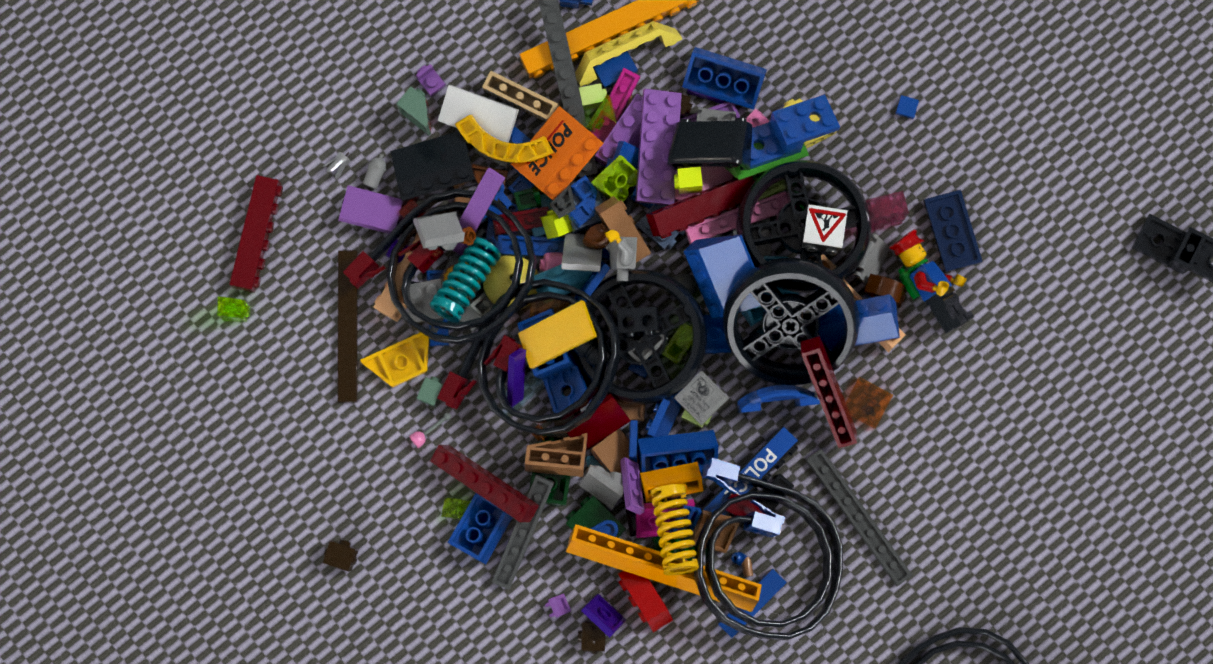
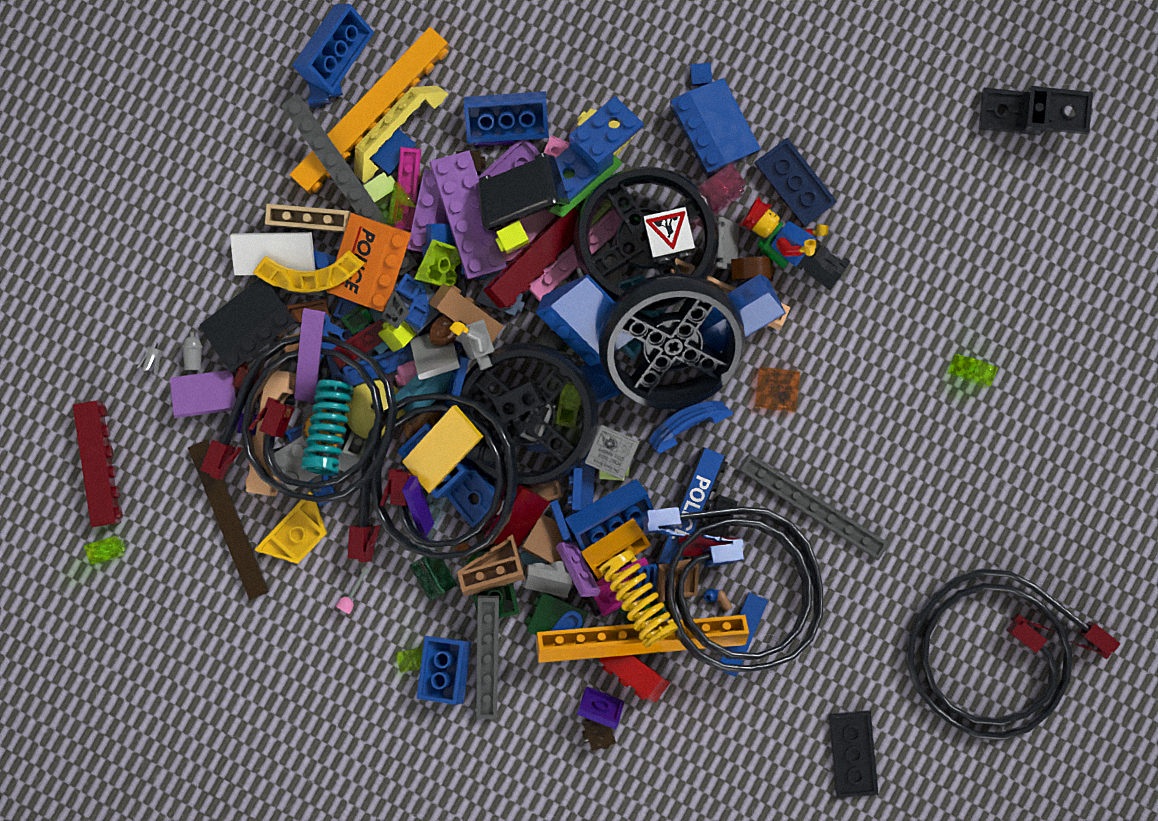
camera: 20 degrees left, 5 degrees up
(341, 555) = (315, 752): dark brown head -> none
(415, 108) = (206, 271): sand green slope -> none
(429, 391) = (337, 552): sand green brick -> none
(430, 79) = (209, 236): medium lavender bracket -> none
(439, 231) = (280, 389): light grey slope -> none
(469, 236) = (307, 384): dark orange plate -> none
(484, 483) = (429, 625): dark red brick -> none
(503, 444) = (433, 576): none -> clear green panel
(559, 606) = (552, 714): medium lavender tile -> none
(715, 115) = (512, 160): light grey hinge -> none
(828, 392) = (737, 396): dark red brick -> none
(901, 155) = (714, 126): none -> blue slope
(1044, 454) = (973, 370): none -> clear neon green slope

